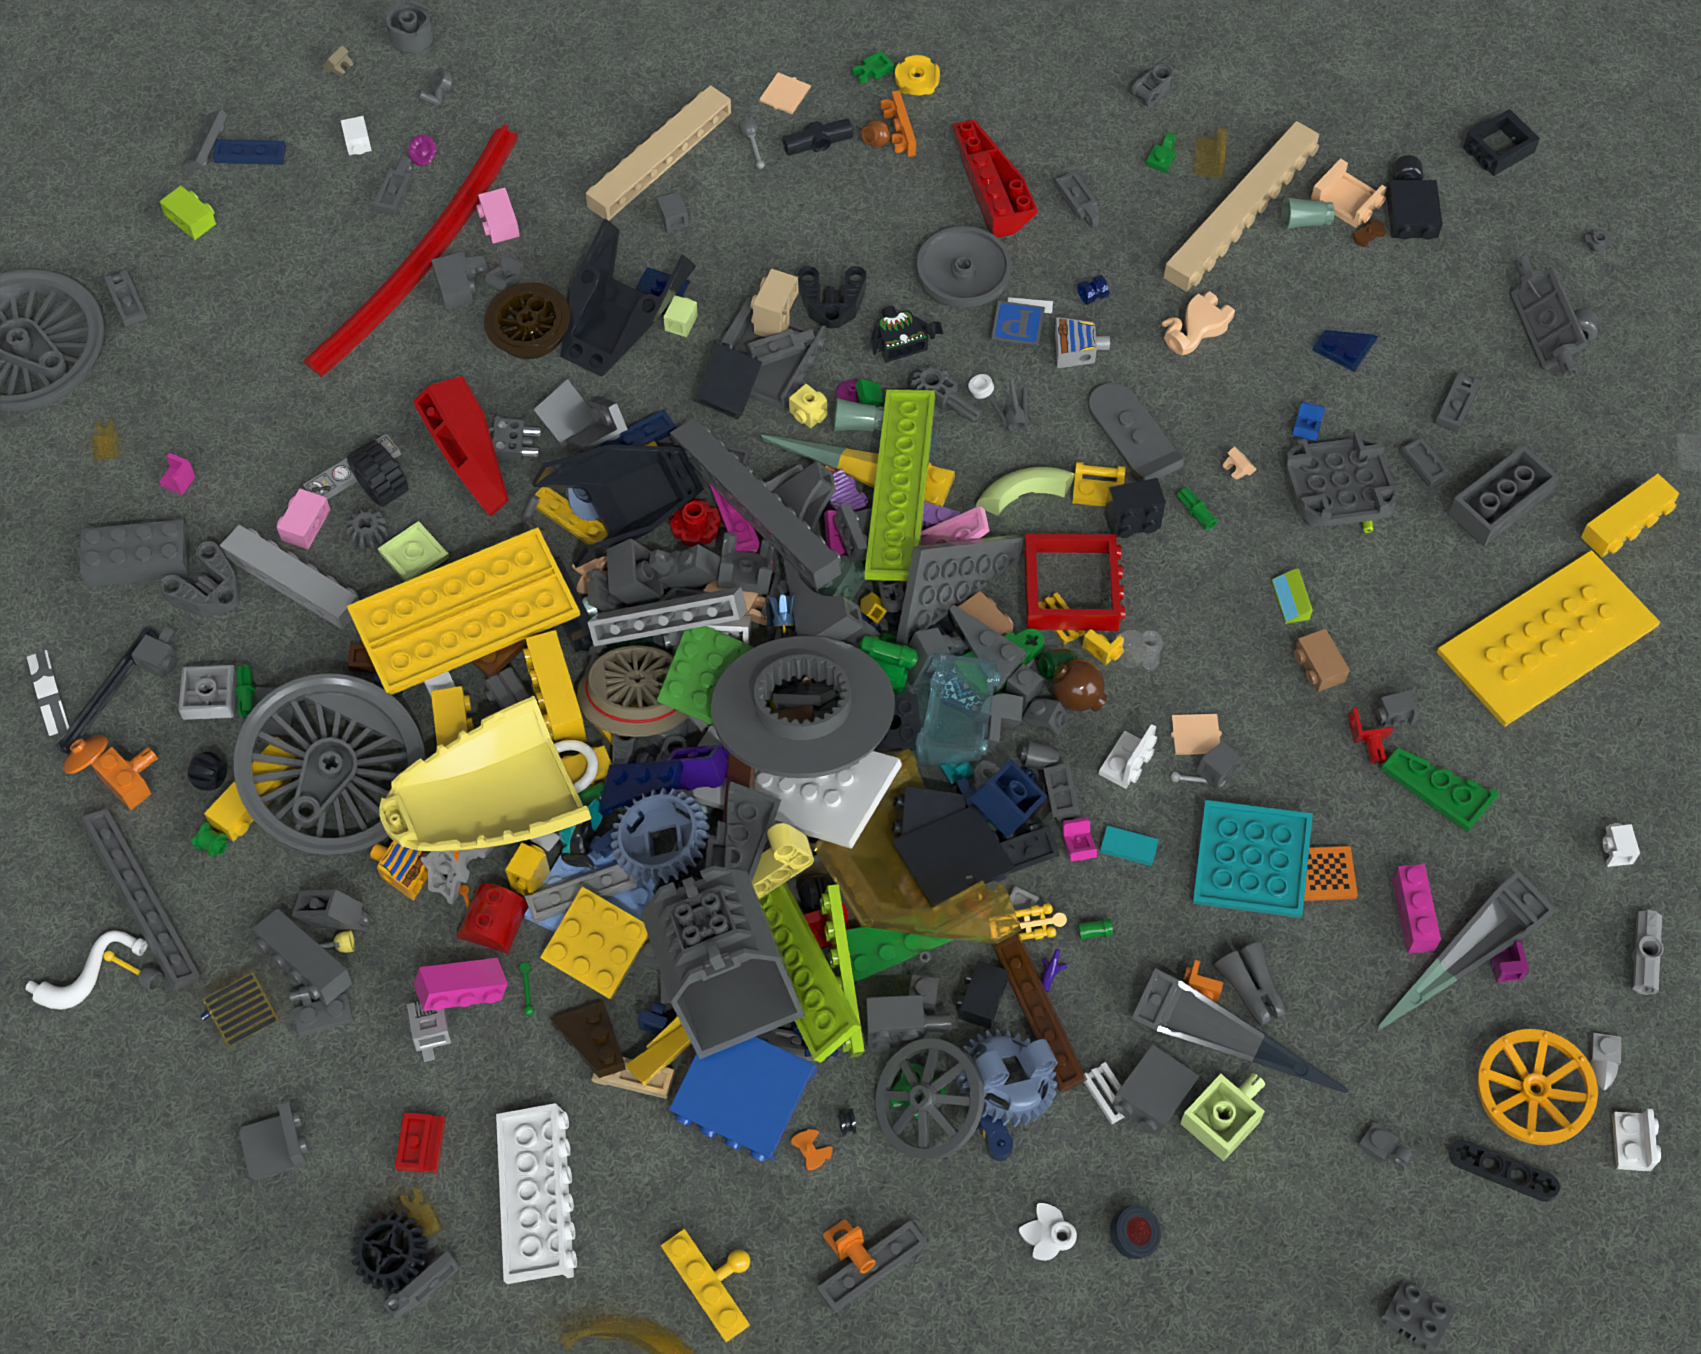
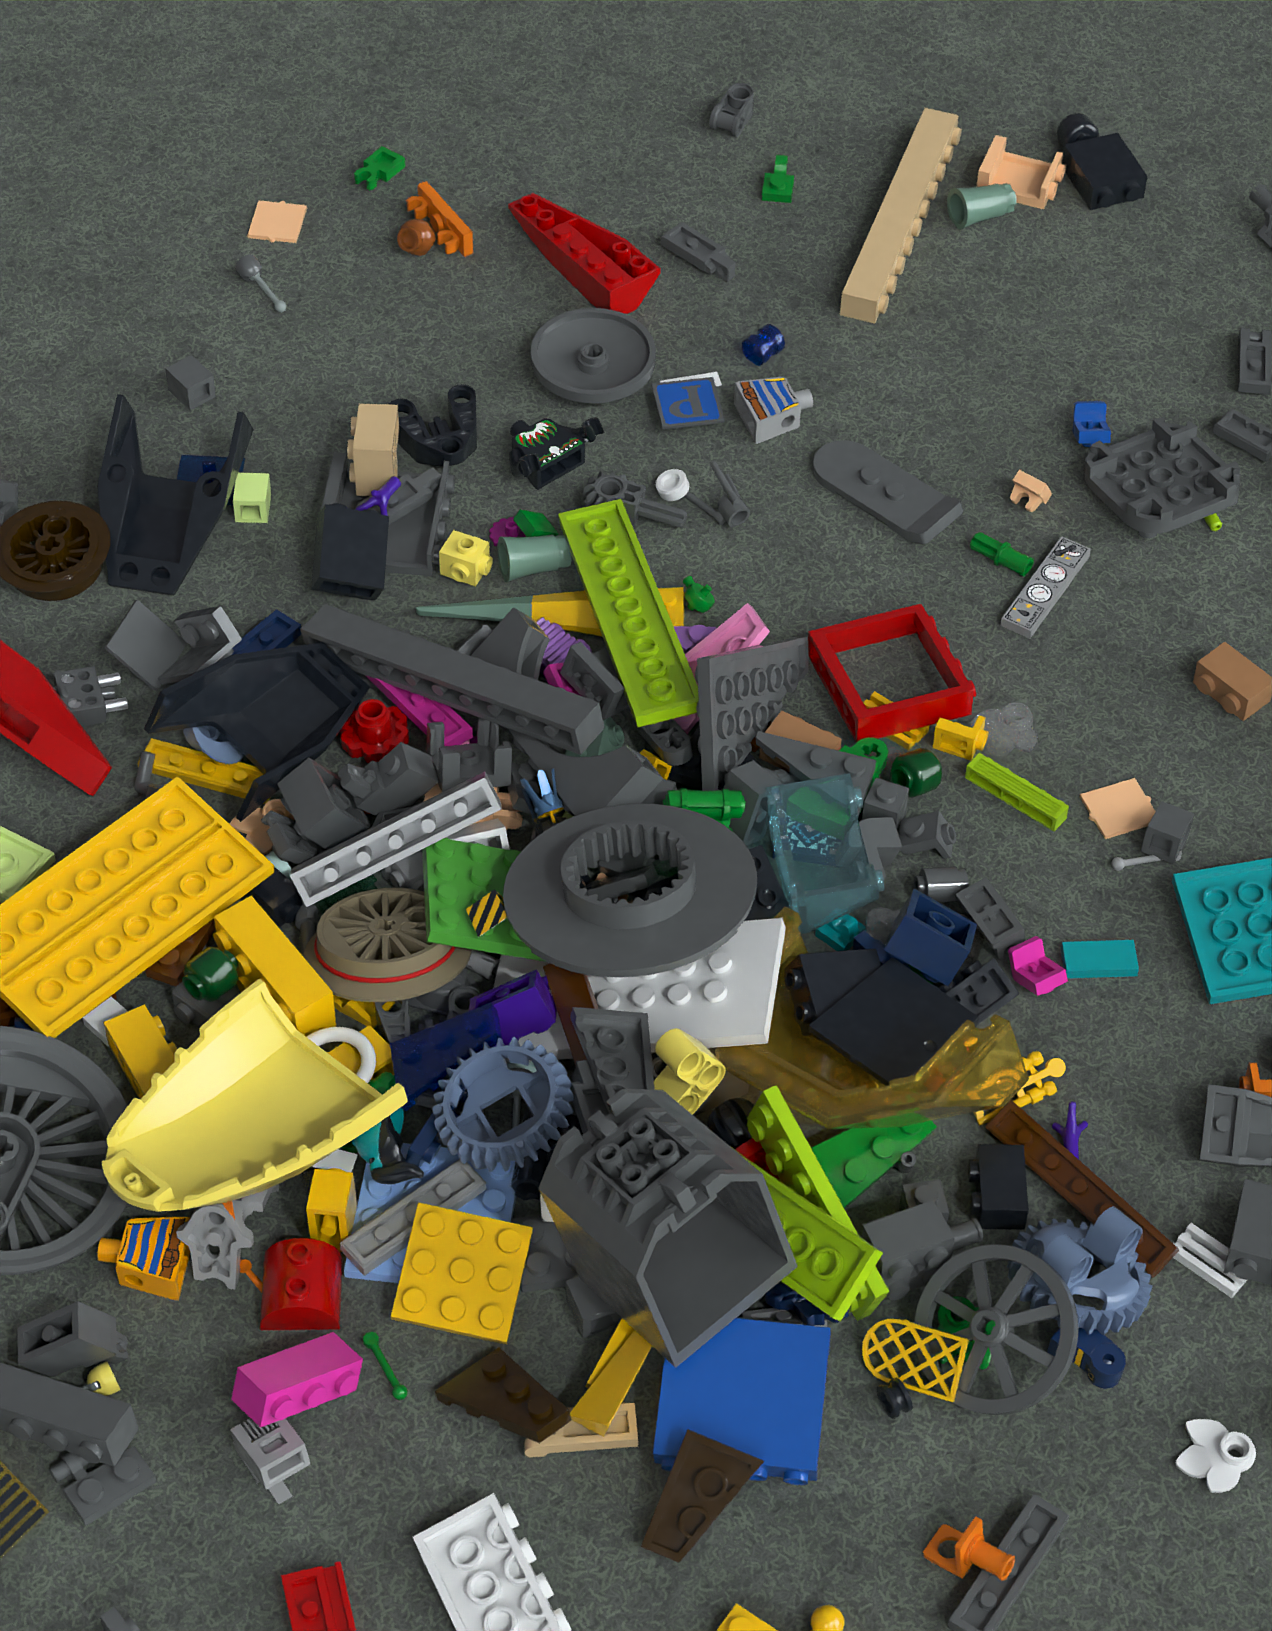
camera: 20 degrees left, 10 degrees down
(510, 678) = (210, 974): none -> dark green head
(653, 1021) = (580, 1351): dark blue tile -> none
(658, 153) = (142, 322): tan brick -> none
(685, 1146) = (695, 1493): none -> dark brown wing
(702, 693) = (487, 912): none -> sticker
(766, 343) = (381, 496): none -> dark purple bar
(814, 1157) = (868, 1458): orange piece -> none
(817, 136) = (341, 258): black piece -> none
(895, 1114) = (910, 1326): none -> yellow window
(917, 85) = (450, 171): yellow plate -> none
(962, 481) = (698, 596): none -> green piece
(1023, 481) = (784, 572): yellowish green brick -> none
(1079, 686) = (956, 786): reddish brown brick -> none
(1095, 491) = (871, 566): yellow plate -> none
(1096, 929) = (1105, 1067): green pin -> none
(1126, 700) = (1016, 791): none -> lime piece
(1128, 756) = (1050, 855): white bracket -> none
(1135, 508) = (930, 566): black brick -> none
(1200, 322) = (910, 348): light nougat hips -> none
(1211, 155) = (838, 172): clear yellow panel -> none
(1218, 544) = (1045, 587): none -> light grey tile
(1292, 597) = (1164, 621): lime slope -> none
(1345, 347) = (1092, 337): clear blue wing -> none
(1368, 233) = (1061, 210): reddish brown piece -> none
(1512, 127) = (1177, 63): black window -> none

